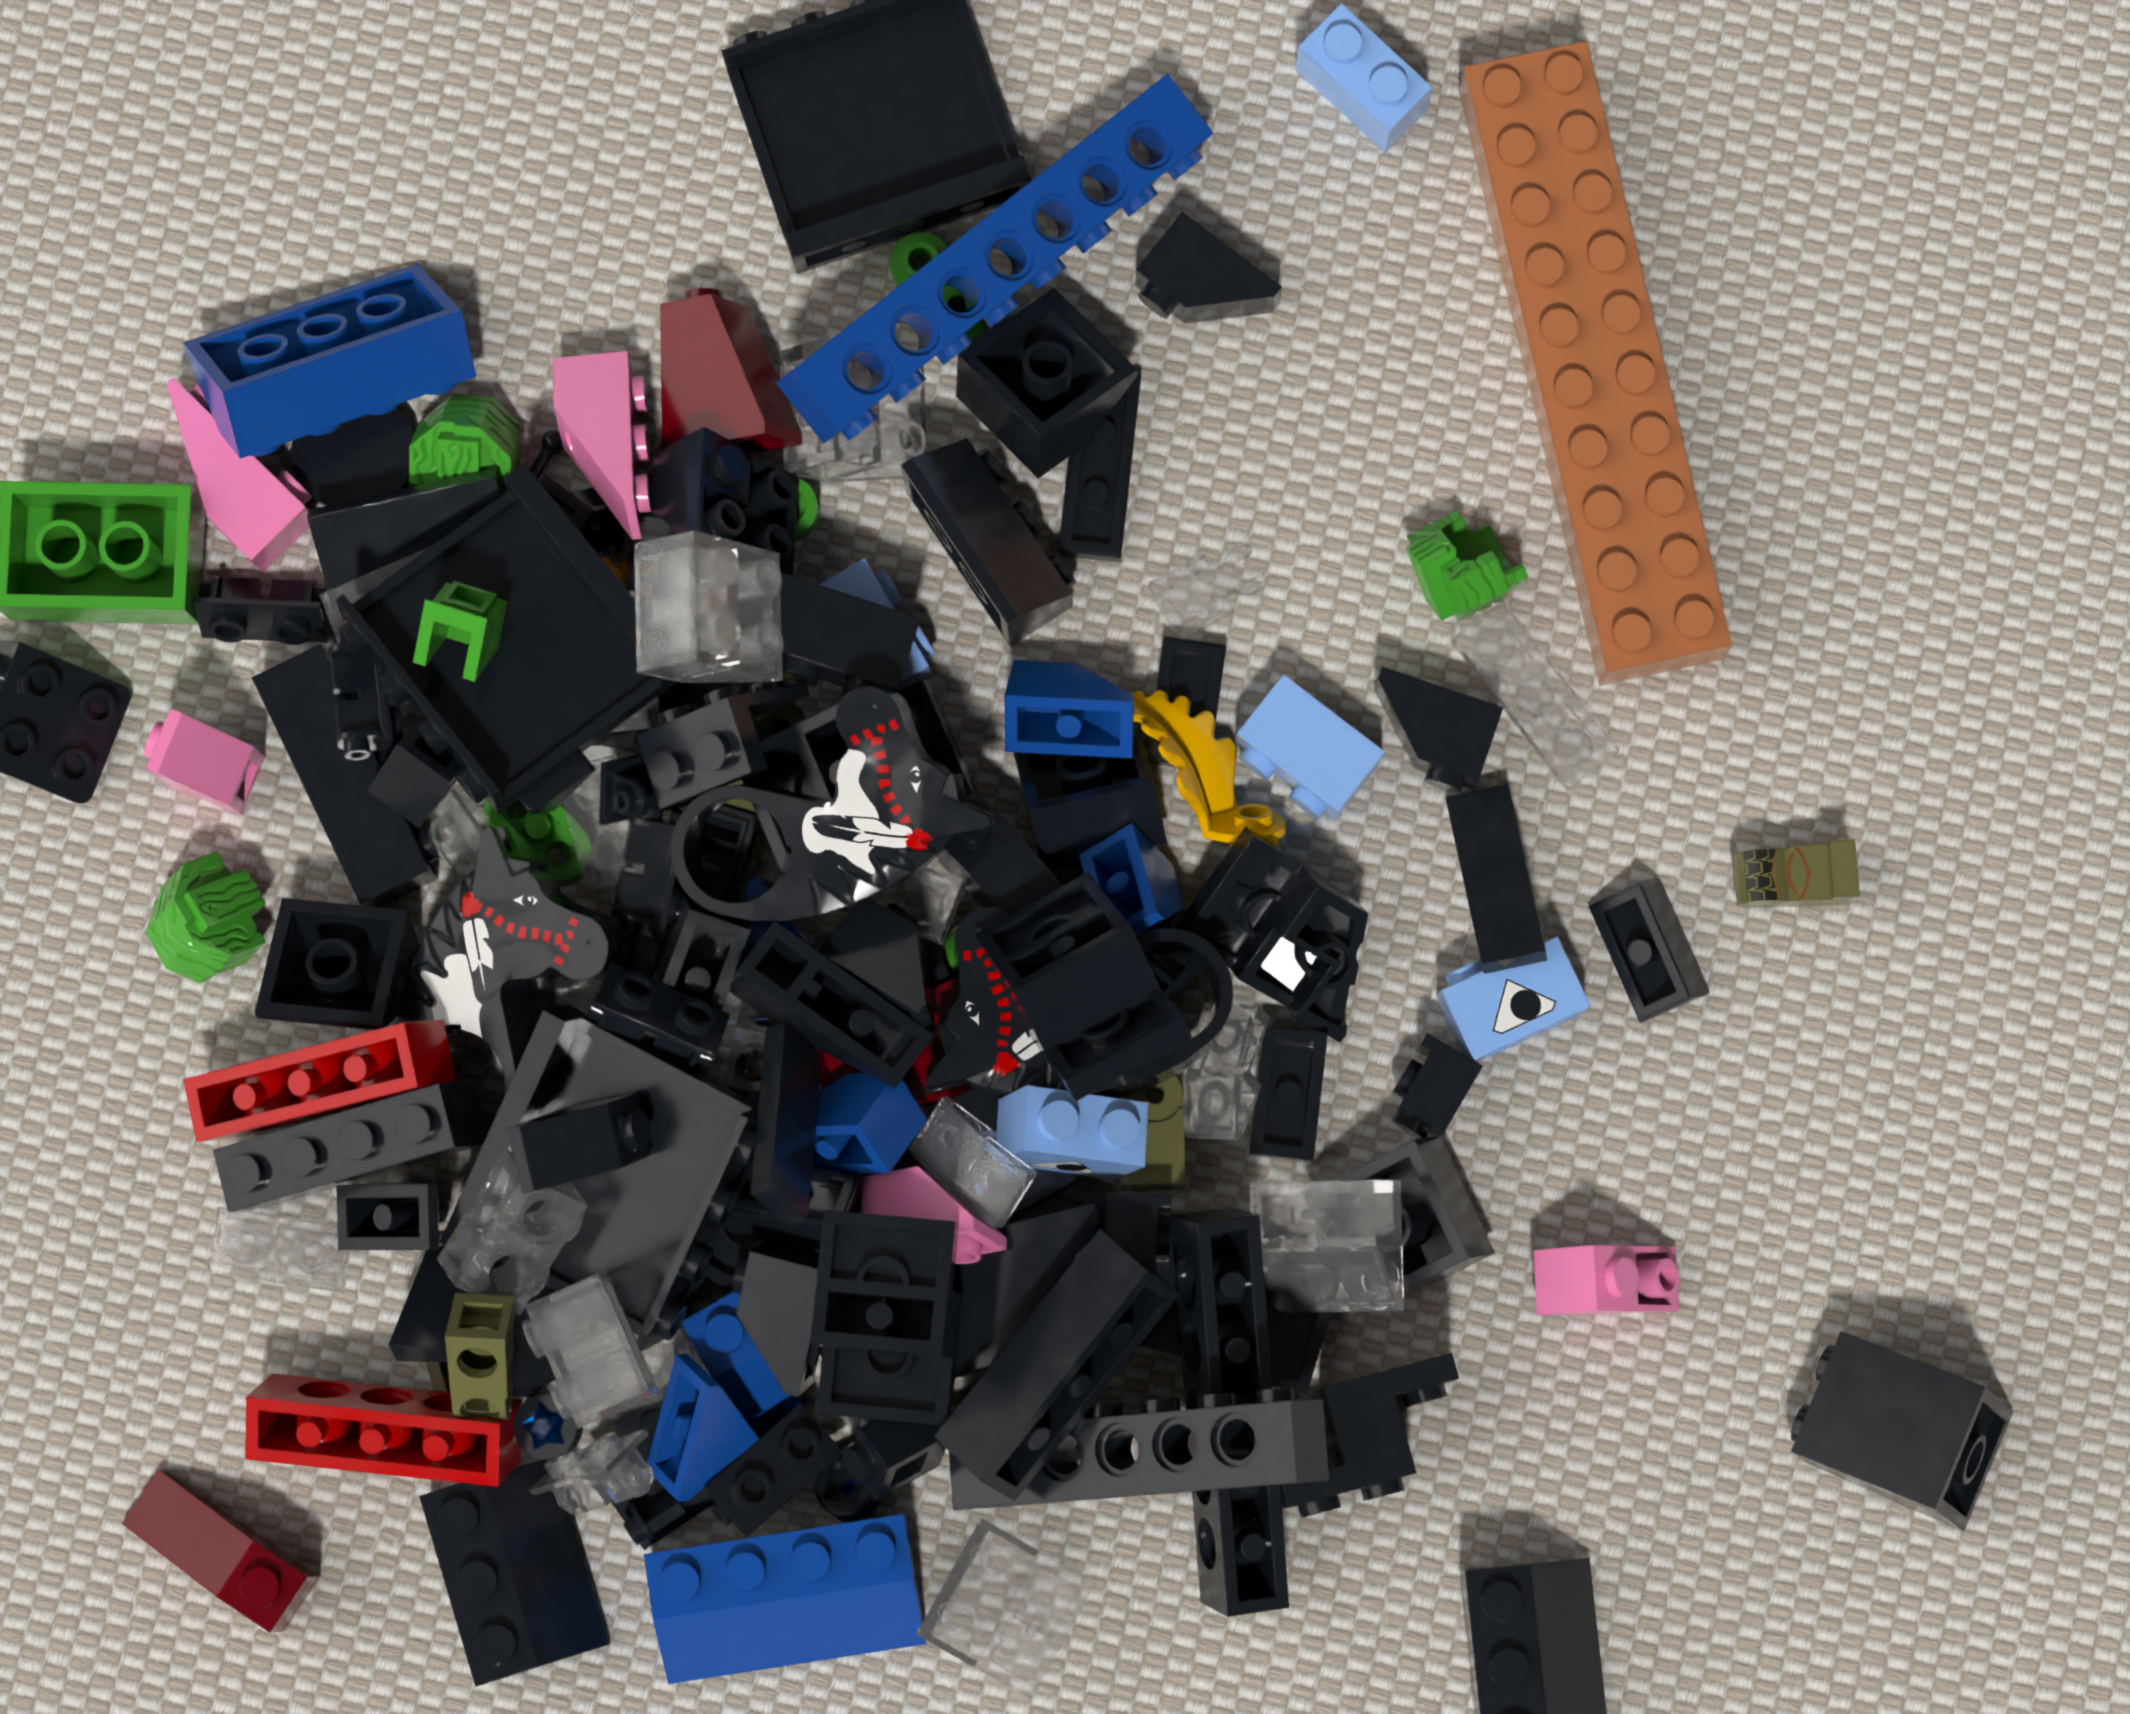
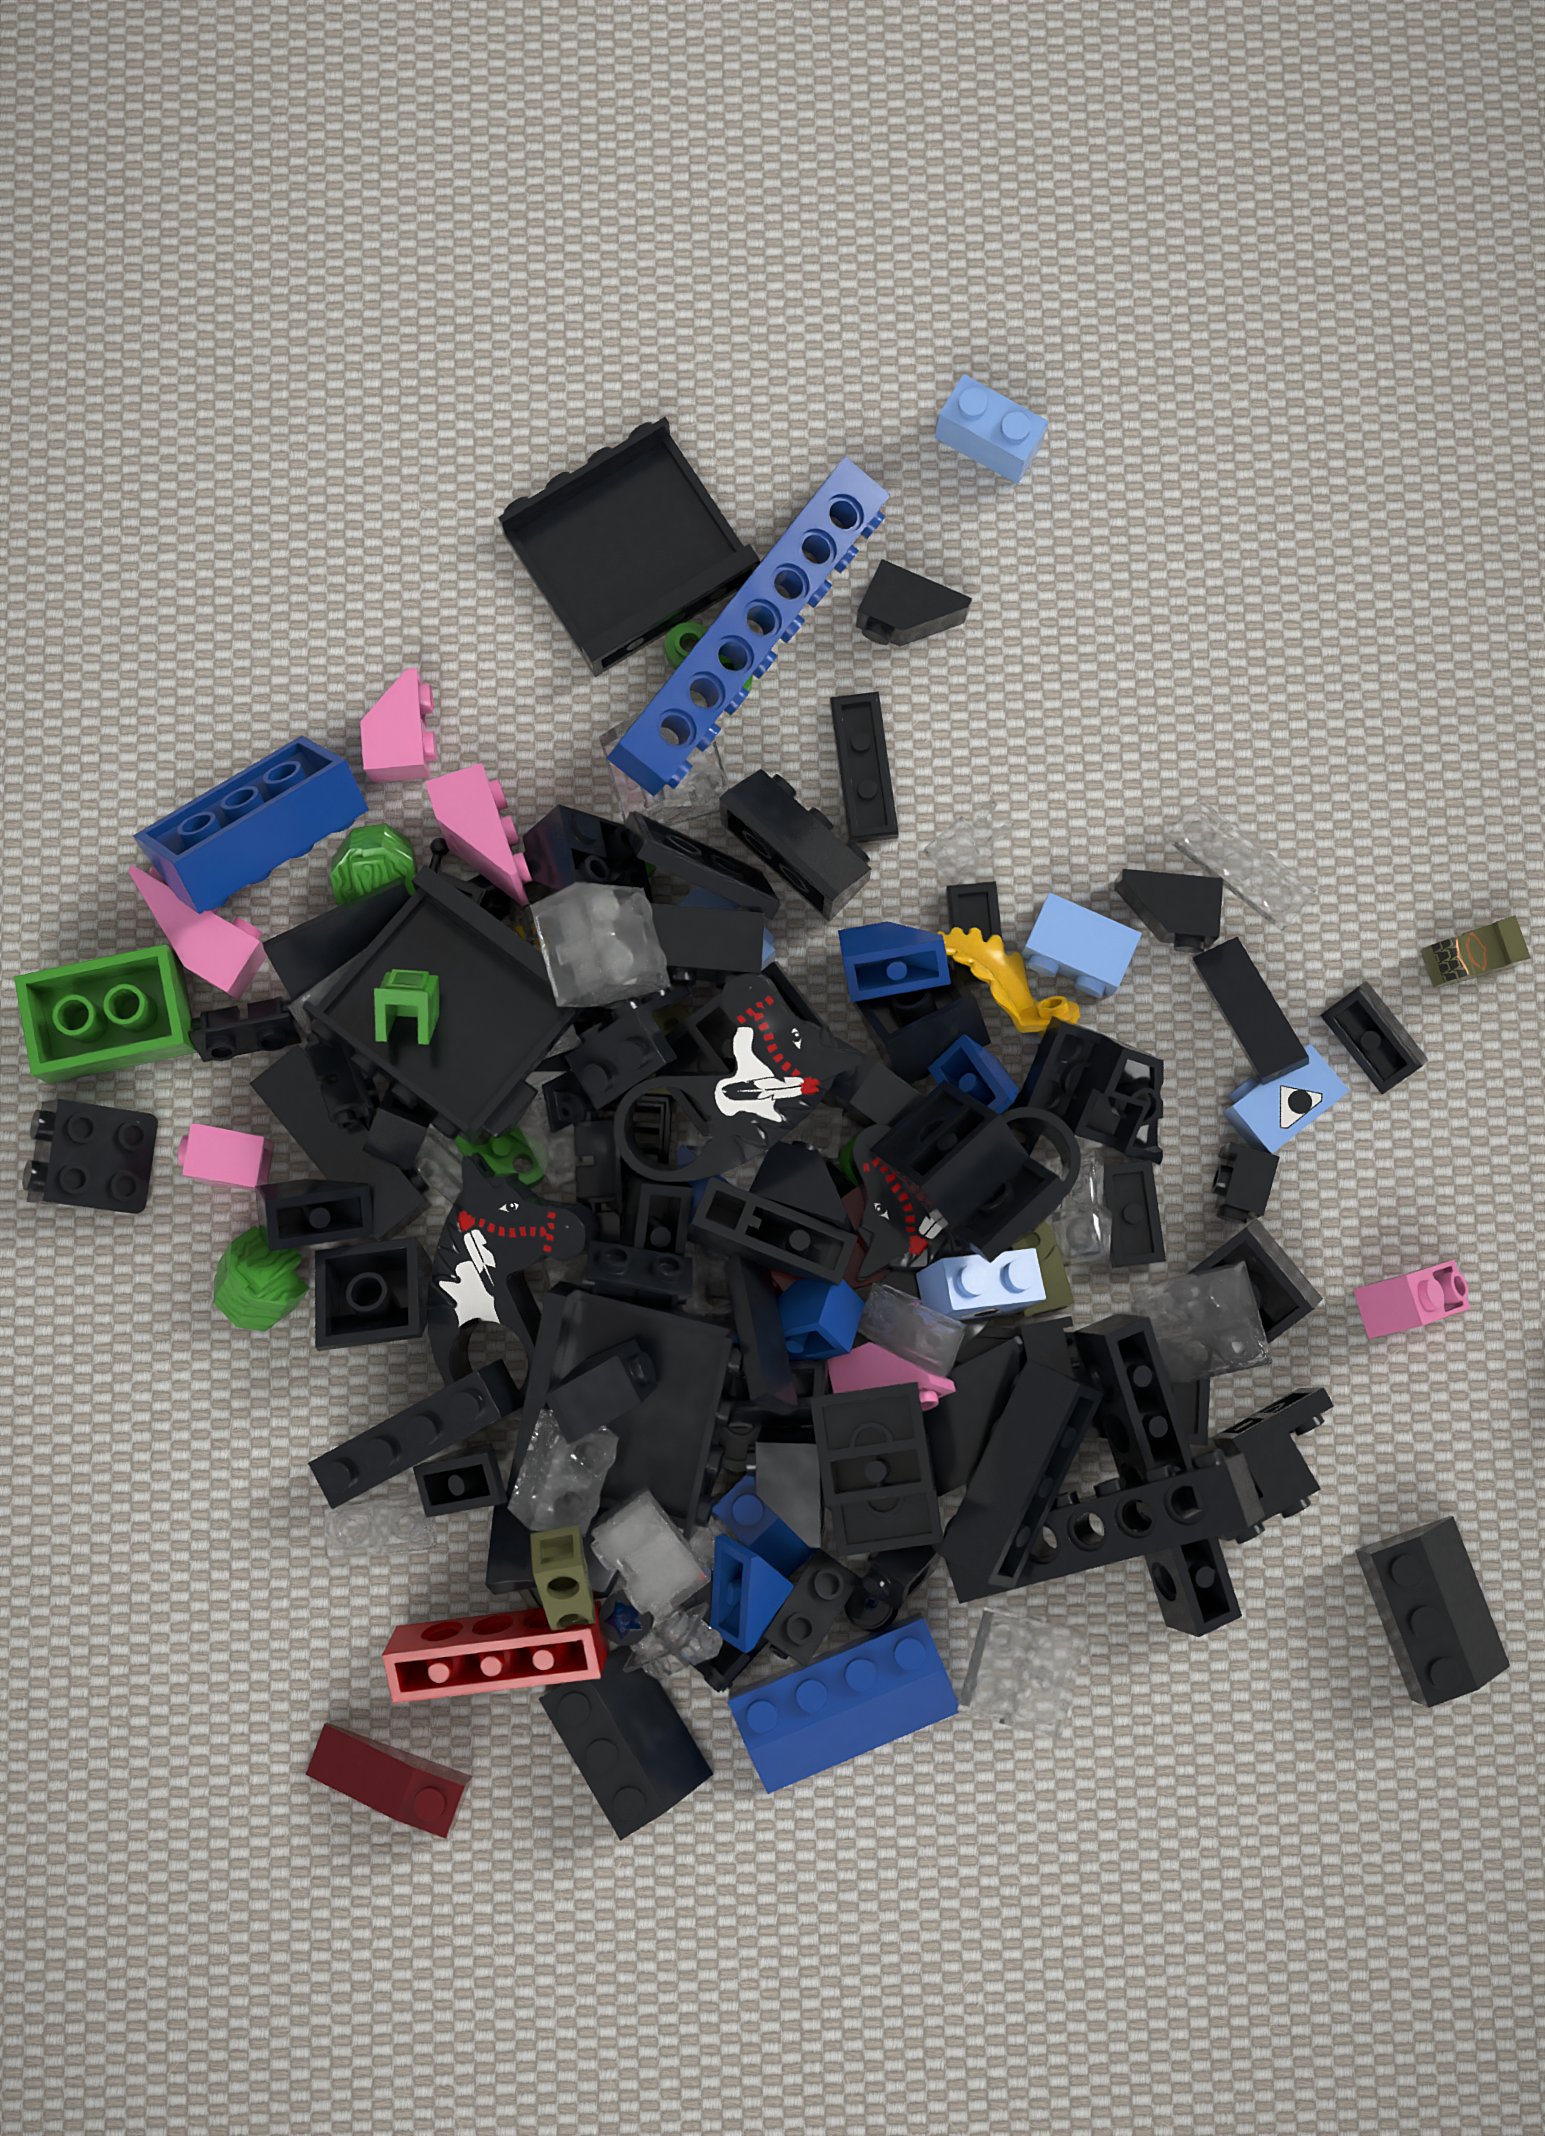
camera: 20 degrees left, 0 degrees up
(290, 851) = (313, 1212): none -> black slope
(318, 1080) = (380, 1387): red brick -> none
(355, 459) = (290, 895): black tile -> none
(533, 288) = (396, 732): none -> bright pink slope
(720, 375) = (558, 765): dark red slope -> none
(861, 539) = (700, 864): none -> black tile
(1043, 381) = (808, 712): black slope -> none
(1461, 567) = (1160, 781): bright green hair -> none
(1593, 364) = (1220, 604): nougat brick -> none

